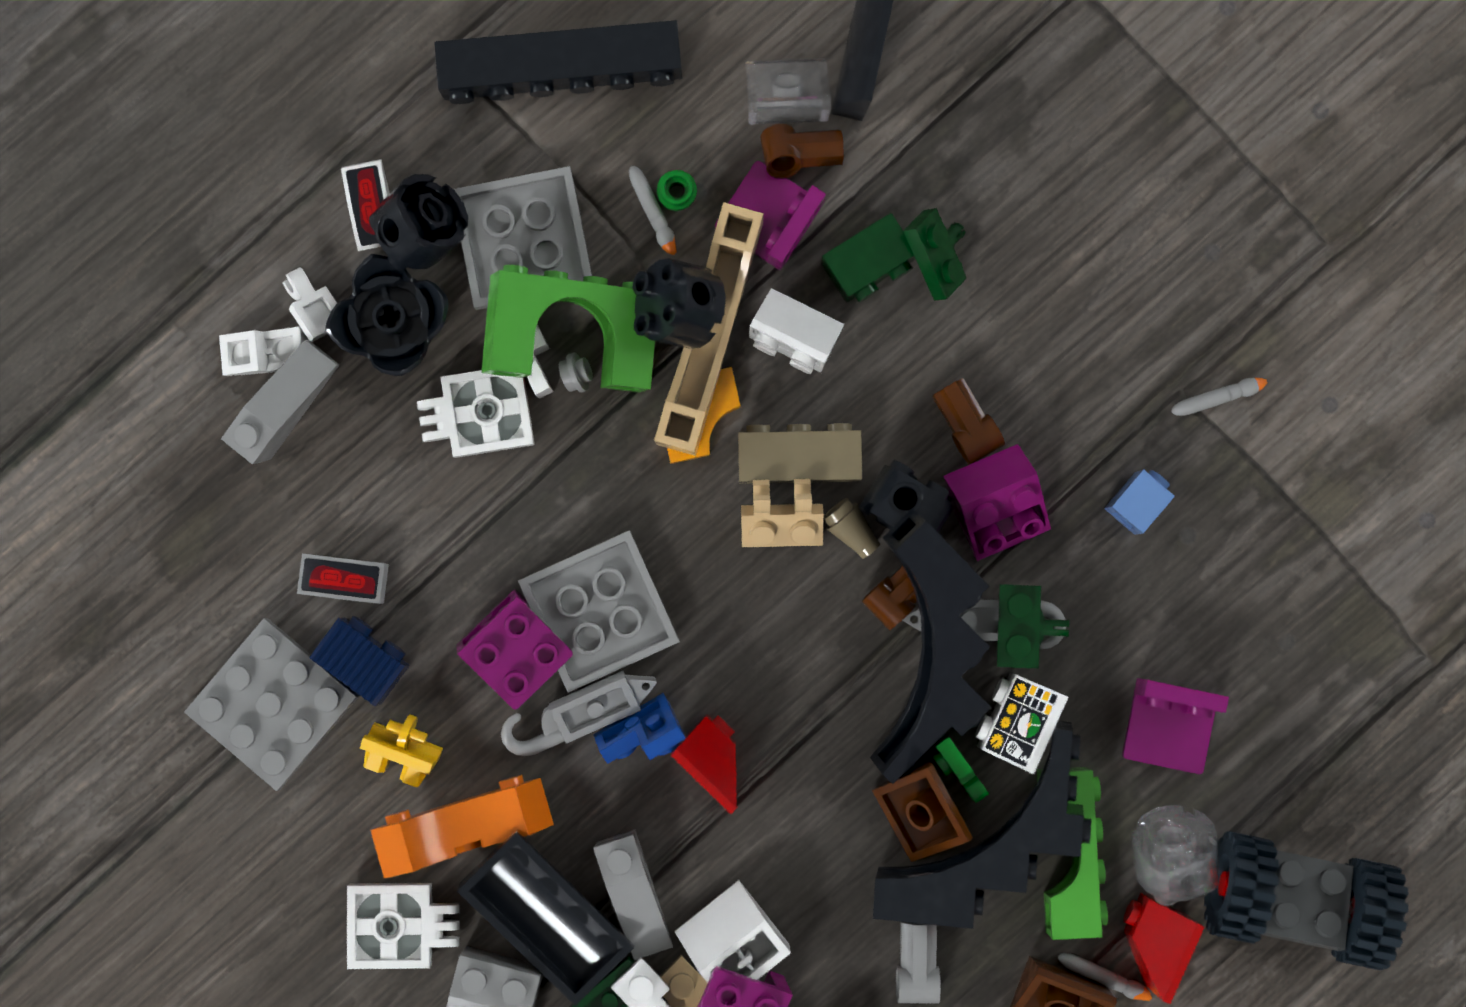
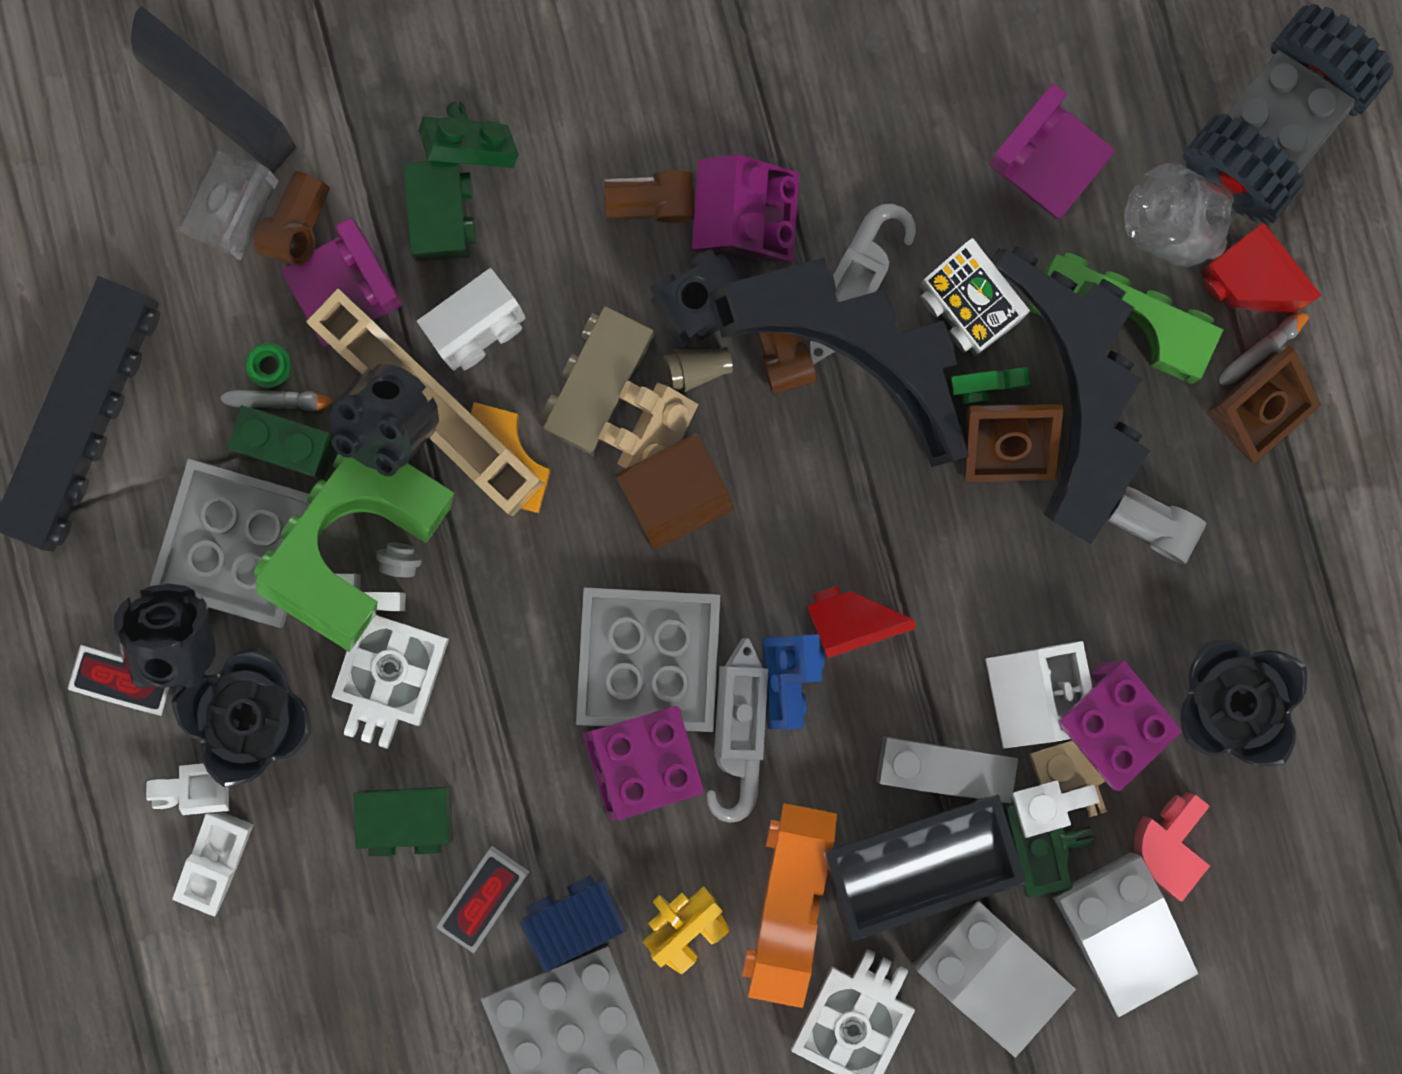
camera: 60 degrees left, 0 degrees up
(280, 404) = (274, 871): light grey slope -> none
(373, 483) = (403, 819): none -> dark green brick
(620, 232) = (281, 442): none -> dark green brick
(742, 563) = (675, 491): none -> reddish brown slope
(1023, 626) = (880, 248): dark green plate -> none
(1140, 501) = (817, 70): medium blue brick -> none

